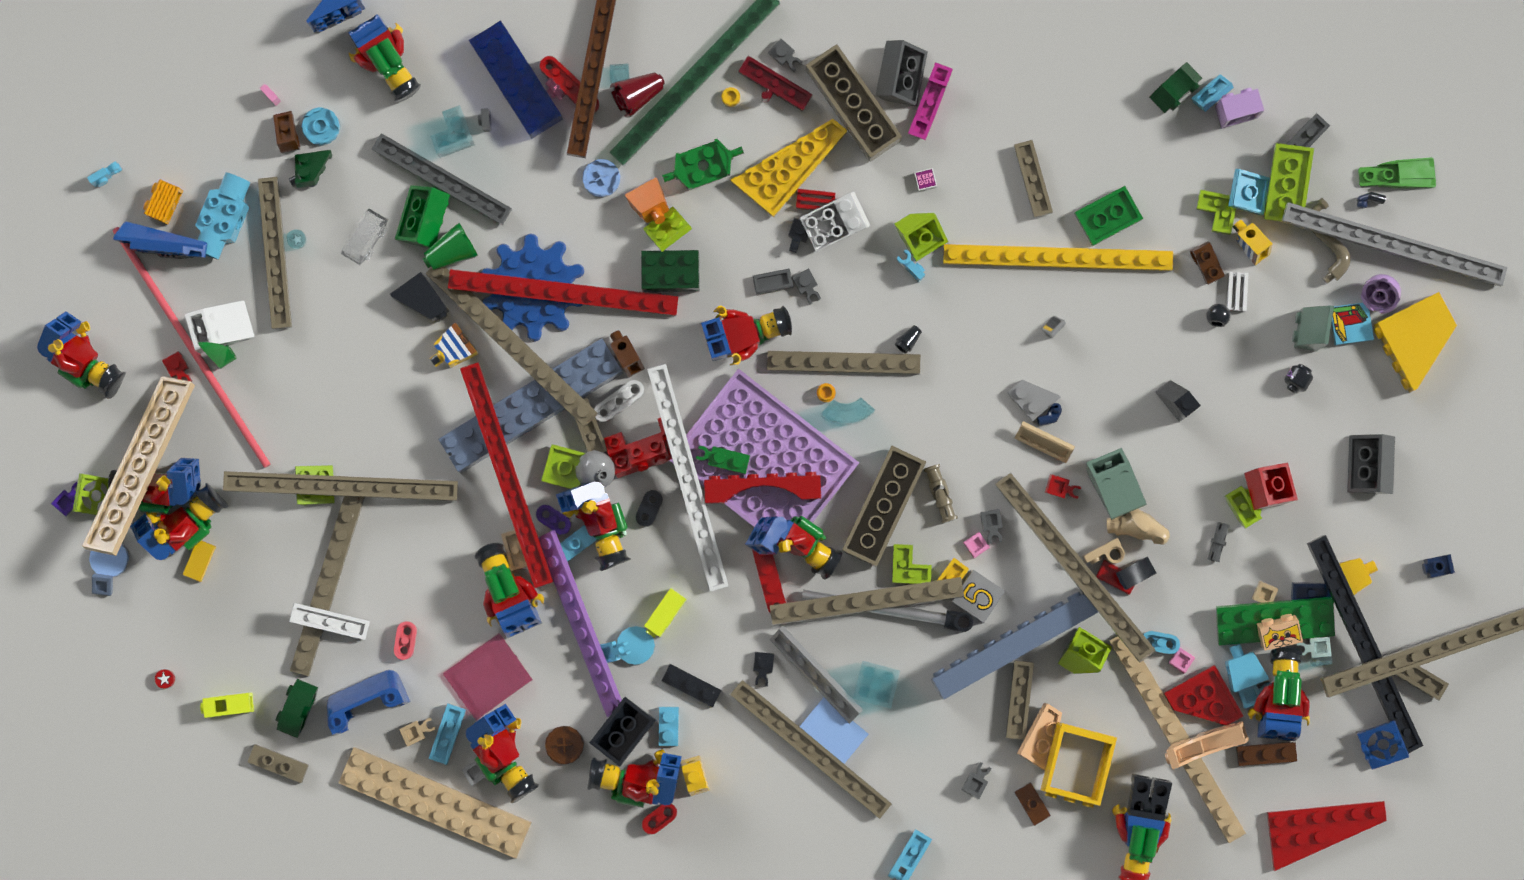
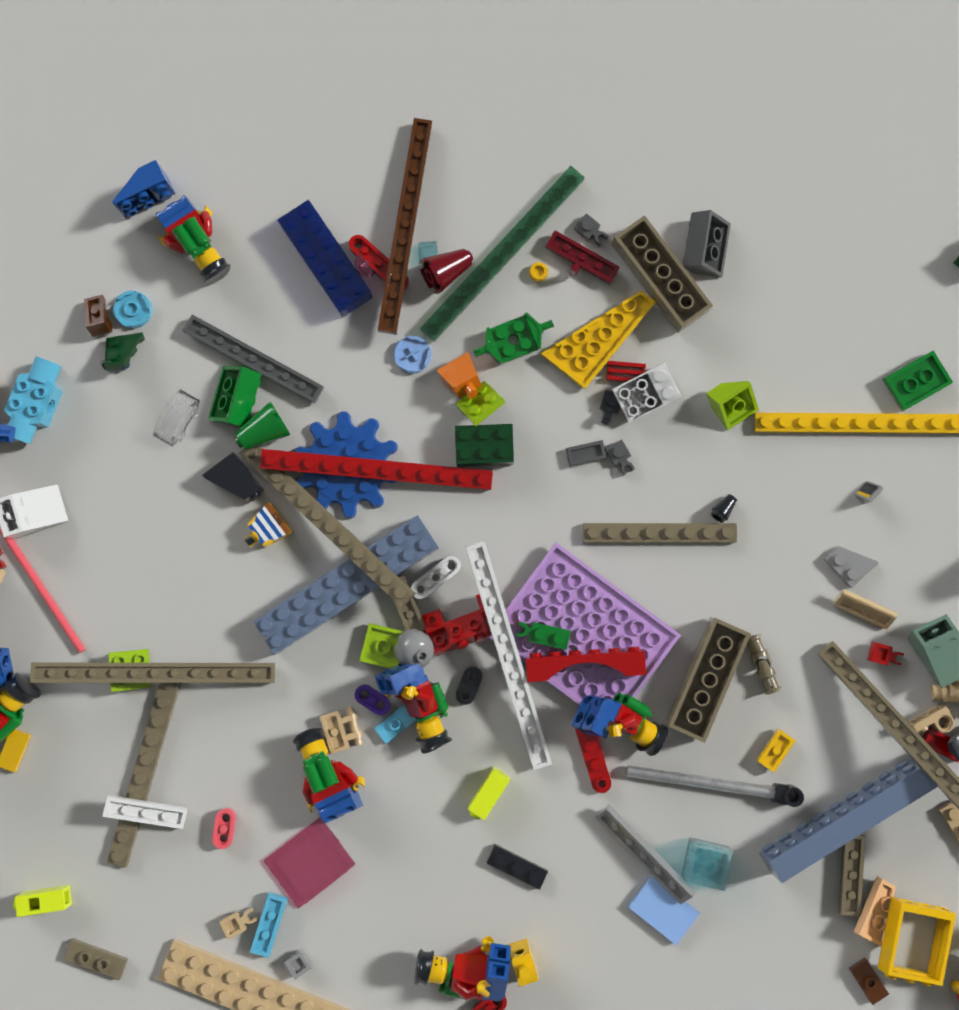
camera: 10 degrees left, 0 degrees up
(218, 353) = (27, 539): green piece -> none
(270, 94) = (81, 279): bright pink tile -> none
(274, 253) = (87, 436): dark tan plate -> none
(296, 239) = (109, 422): clear light blue tile -> none
(296, 708) = (113, 903): dark green brick -> none
(385, 684) = (202, 880): blue windscreen -> none
(456, 137) = (266, 316): clear light blue brick -> none
(485, 119) = (295, 299): dark grey plate -> none
(498, 750) = (318, 945): piece -> none
(506, 475) = (323, 658): red plate -> none
(564, 745) = (389, 931): reddish brown tile -> none
(580, 622) = (403, 807): medium lavender plate -> none
(613, 651) = (434, 836): medium azure plate -> none
(622, 731) = (449, 921): black slope -> none
(626, 354) = (445, 534): reddish brown torso -> none
(639, 644) = (458, 827): medium azure tile -> none
(668, 726) = (495, 909): medium azure plate -> none
(741, 334) = (557, 507): piece -> none
(763, 663) = (589, 843): black plate -> none
(811, 749) = (642, 931): dark tan plate -> none
(826, 392) = (643, 564): light orange plate -> none
(847, 413) = (667, 585): clear light blue brick -> none
(866, 601) = (694, 777): dark tan plate -> none
(903, 568) = (729, 742): lime plate -> none
(915, 270) = (729, 439): medium azure plate -> none
(925, 179) = (734, 349): tile -> none
(930, 101) = (736, 271): dark pink slope -> none
(976, 545) = (800, 714): bright pink tile -> none
(976, 783) = (810, 962): dark grey plate -> none
(979, 596) = (804, 767): light grey tile -> none
(992, 522) = (815, 692): dark grey plate -> none
(1033, 178) = (841, 346): dark tan plate -> none
(1052, 415) = (870, 581): dark blue arm -> none
(1084, 653) = (917, 826): lime slope -> none

